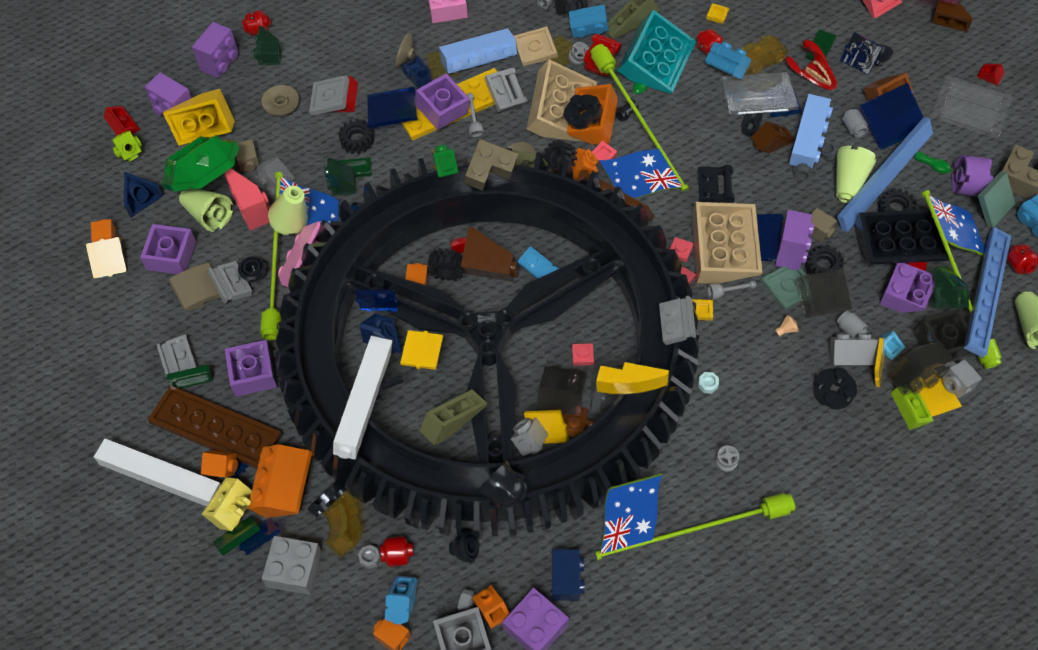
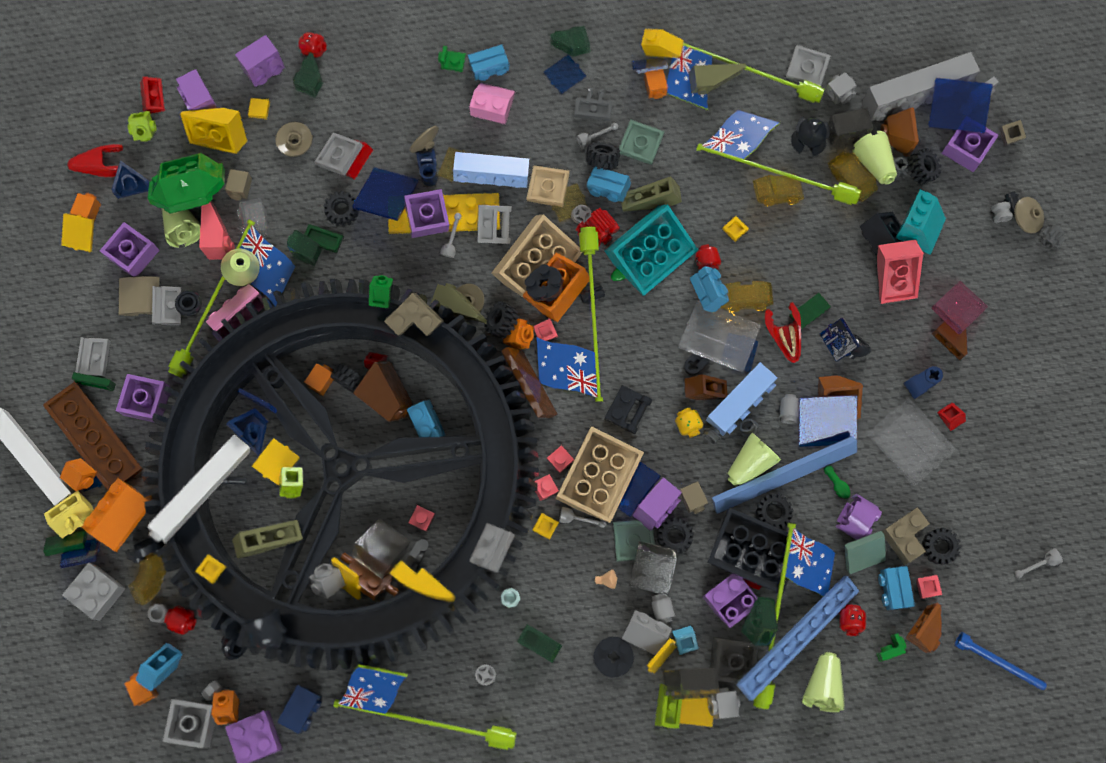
camera: 25 degrees right, 15 degrees up
(92, 196) = (92, 161): none -> red animal
(232, 91) = (258, 108): none -> yellow tile
(413, 464) = (210, 569): none -> yellow tile
(449, 353) = (290, 482): none -> lime brick
(760, 405) = (539, 643): none -> clear green slope
(776, 170) = (689, 422): none -> yellow head
(951, 56) = (922, 383): none -> dark blue piece

